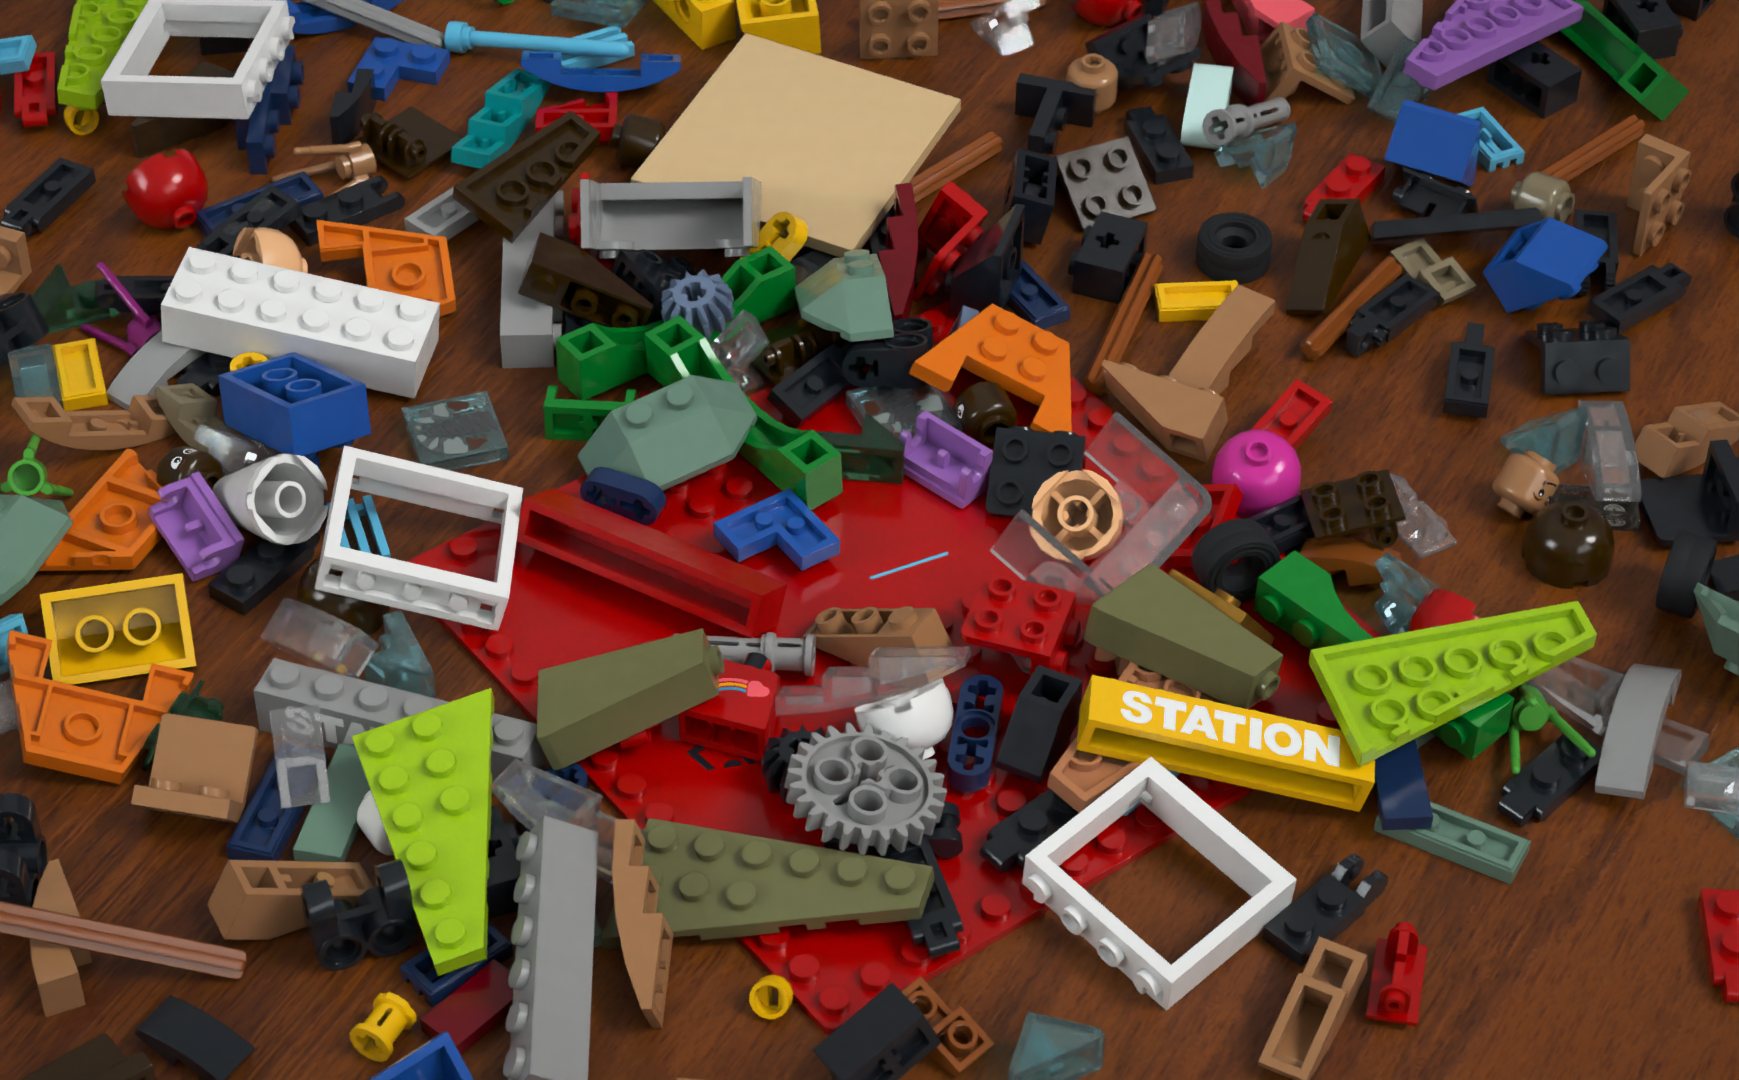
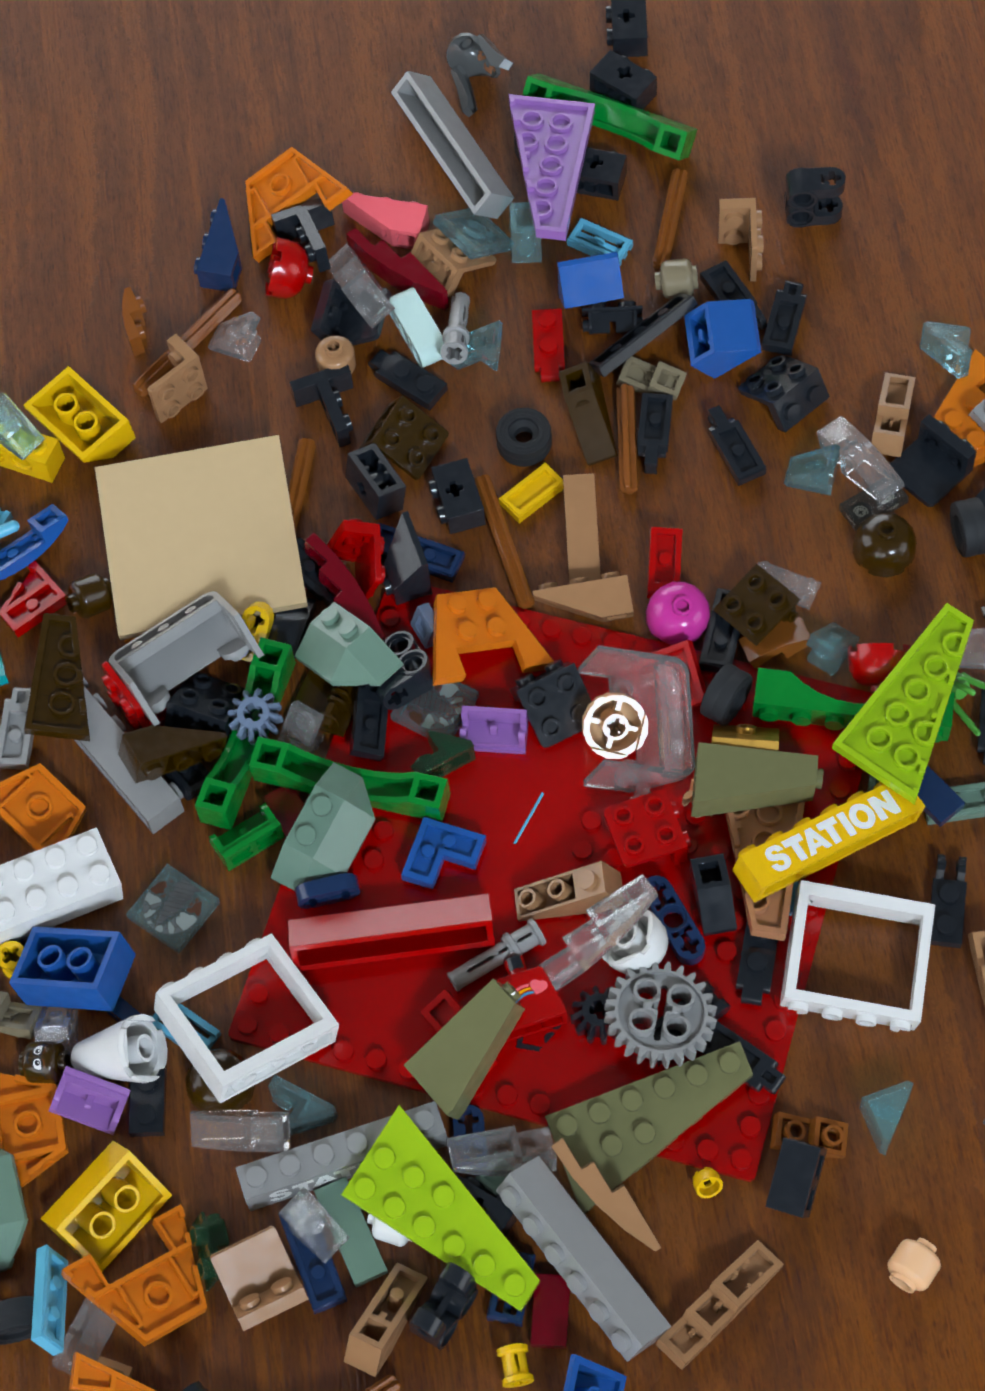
camera: 30 degrees left, 20 degrees up
(982, 409) = (488, 675): dark brown head -> none
(1525, 483) = (833, 516): medium nougat head -> none

